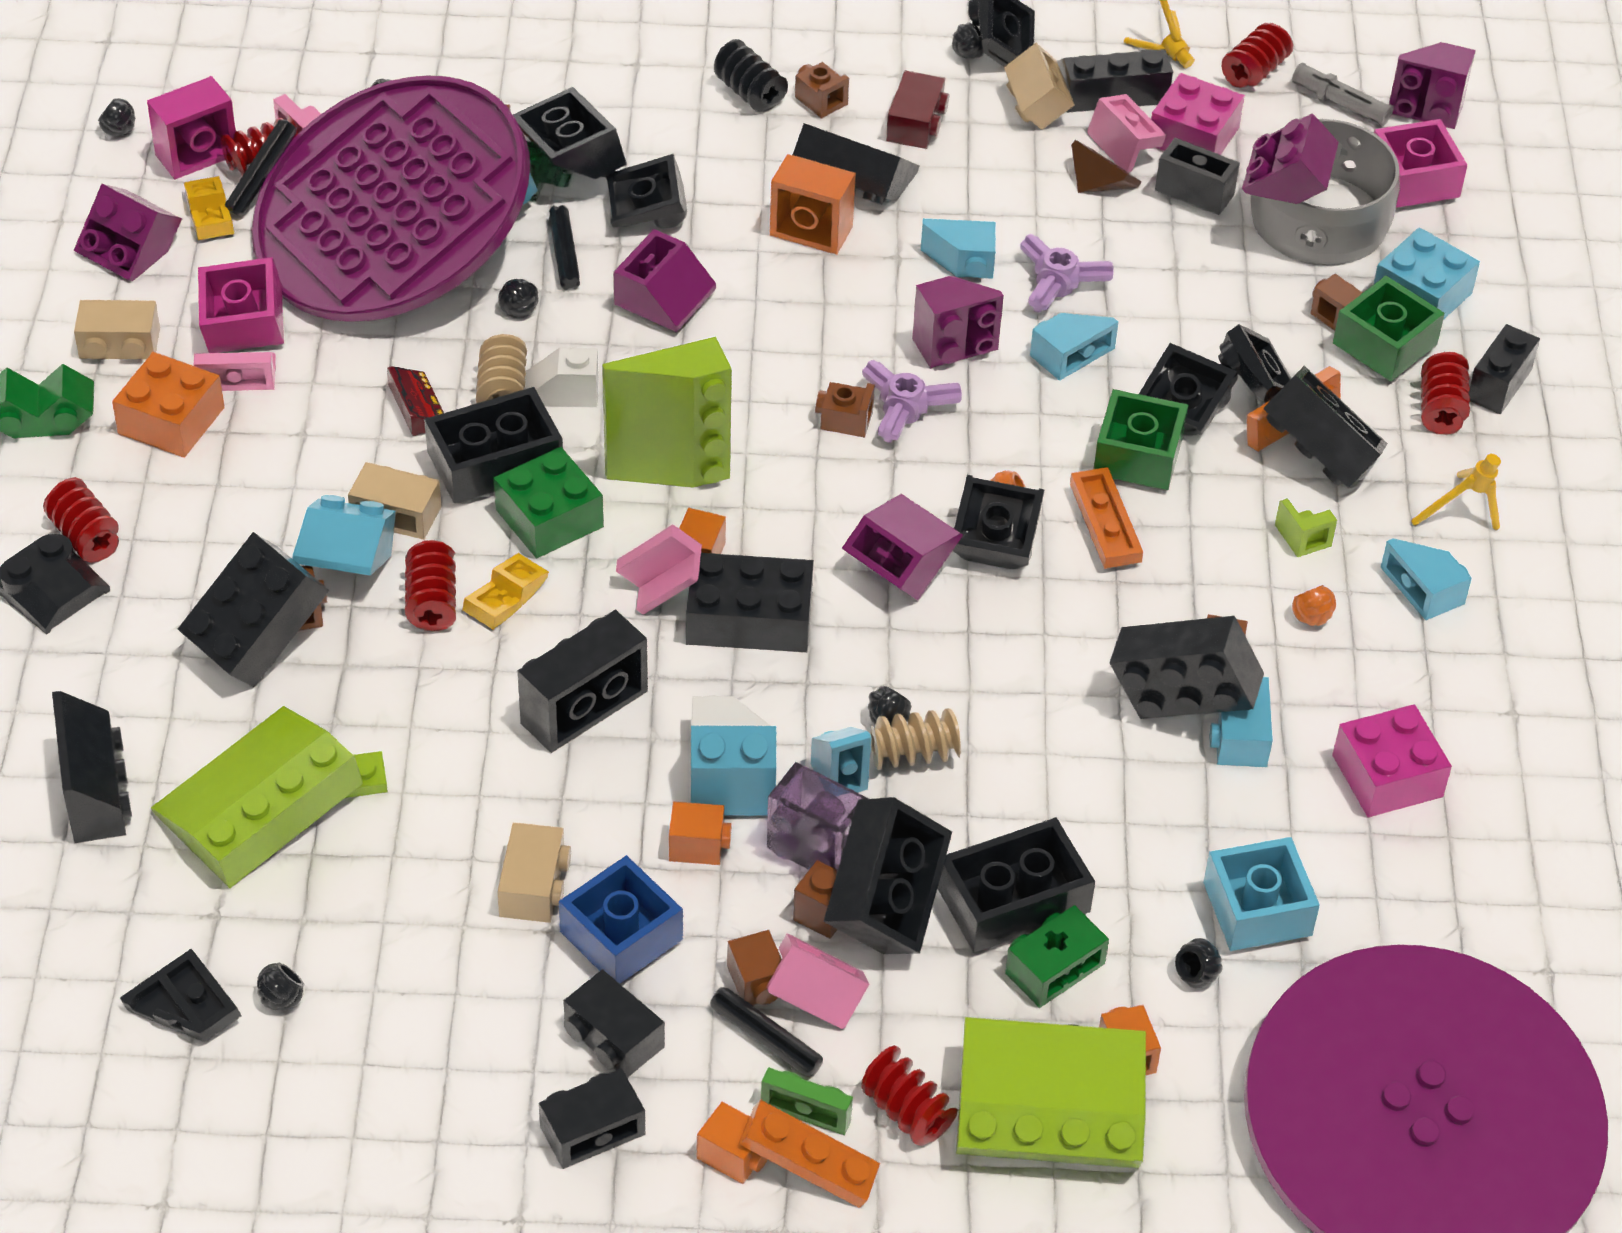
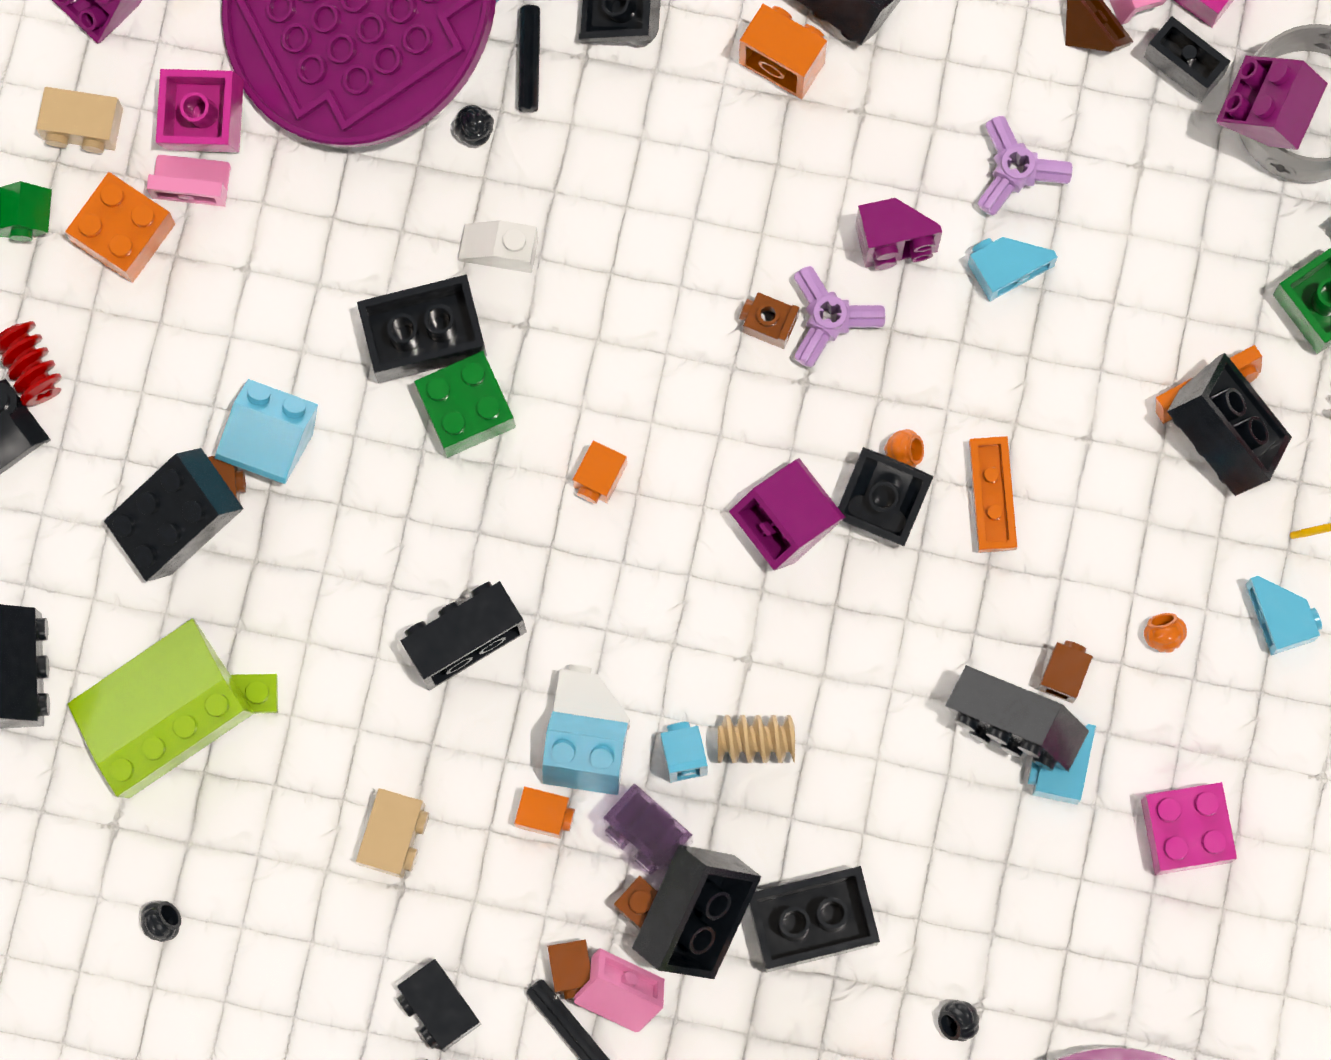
camera: 15 degrees right, 30 degrees up
(183, 999) = (79, 919): black wing -> none
(411, 495) = (321, 377): tan brick -> none
(413, 397) = (359, 246): slope -> none
(430, 585) = (340, 492): red piece -> none
(501, 367) = (439, 233): tan piece -> none
(509, 589) = (412, 499): yellow slope -> none
(621, 920) = (459, 904): blue brick -> none
(661, 567) = (560, 513): bright pink panel -> none
(662, 281) = (618, 132): magenta slope -> none
(669, 416) = (589, 348): lime slope -> none
(750, 603) = (634, 554): black brick -> none
(887, 703) = (740, 696): black piece -> none
(961, 246) = (927, 119): medium azure slope -> none
(1056, 955) = (857, 993): green brick -> none
(1141, 438) = (1045, 410): green brick -> none
(1193, 381) = (1106, 349): black slope -> none
(1254, 361) = (1186, 332): black slope -> none
(1261, 893) = (1029, 963): medium azure brick -> none
(1305, 530) = (1182, 533): lime panel -> none
(1330, 297) = (1289, 247): dark orange brick -> none

